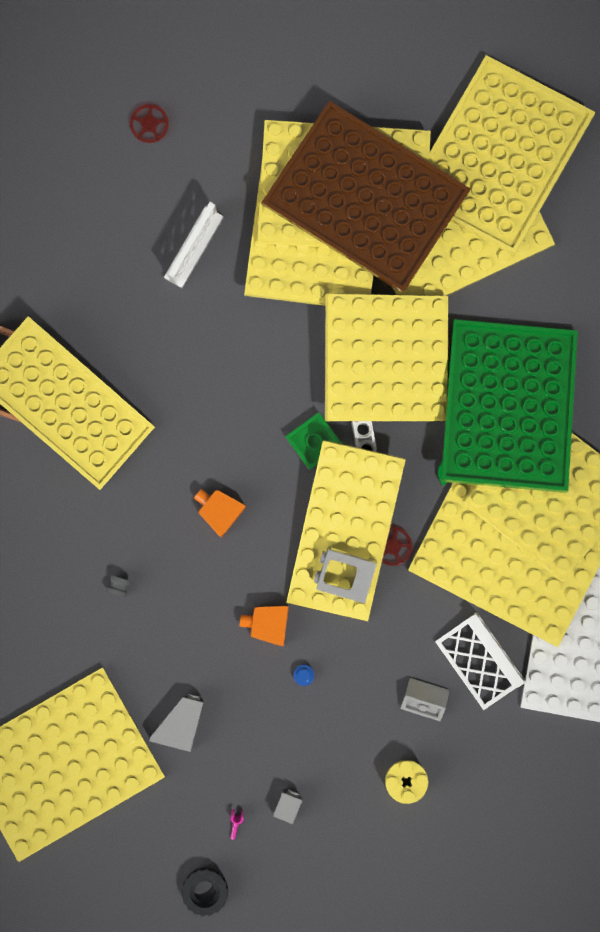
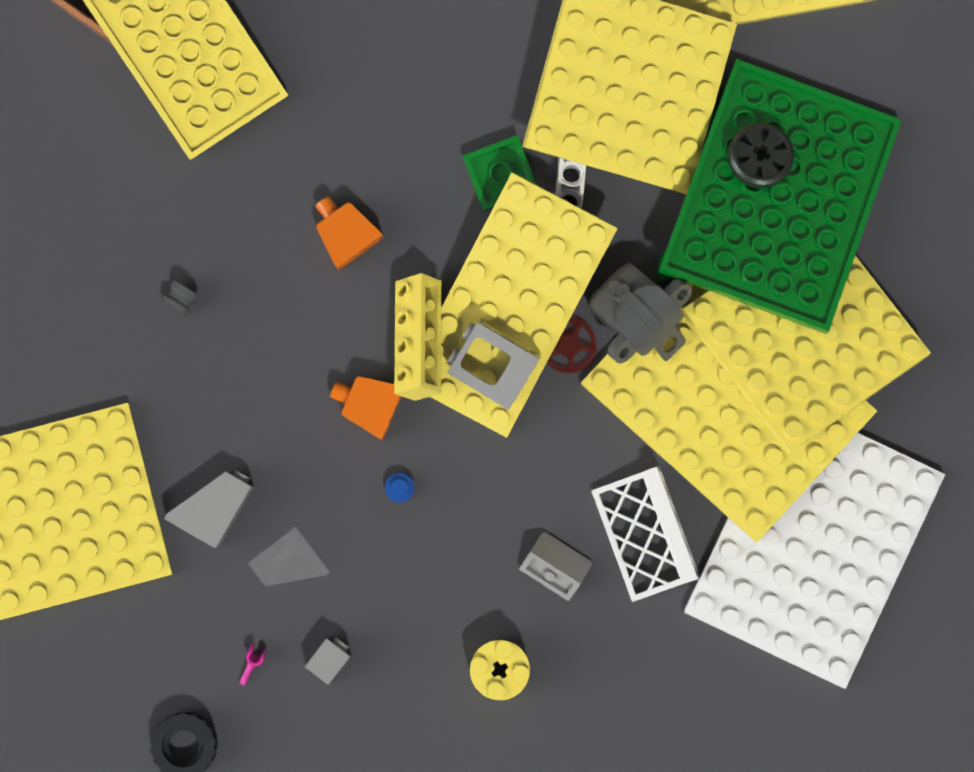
camera: 15 degrees right, 0 degrees up
(241, 746) = (288, 561): none -> clear wing
(289, 570) = (417, 337): none -> light yellow brick
(436, 512) = (640, 313): none -> dark grey piece
(497, 373) = (777, 150): none -> pearl dark grey wheel

